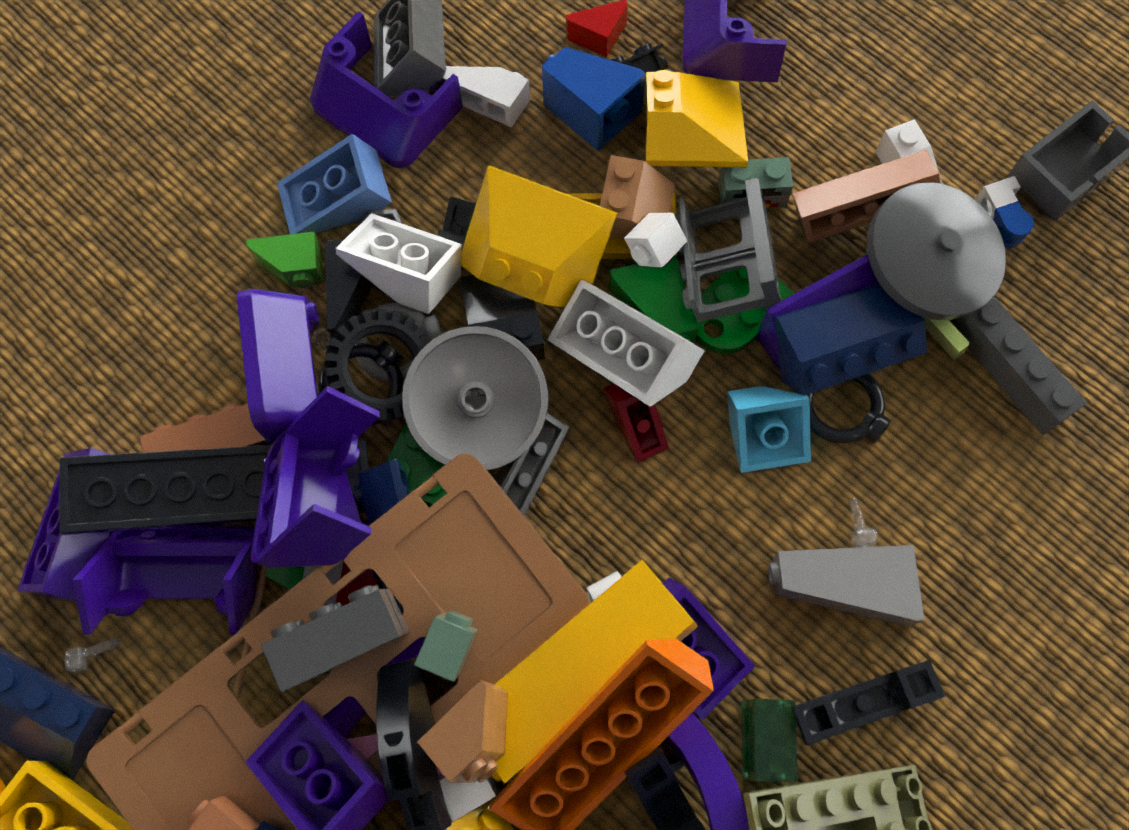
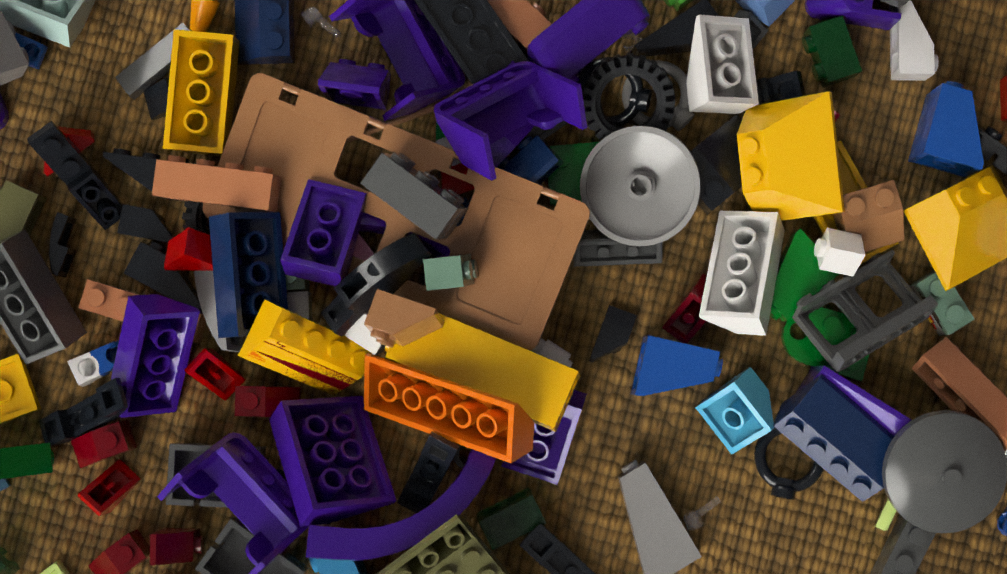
camera: 65 degrees right, 15 degrees up
(181, 646) = (355, 84): none -> dark purple slope
(452, 160) = (831, 52): none -> dark green brick
(617, 514) = (613, 332): none -> black slope
(684, 467) = (673, 365): none -> blue slope

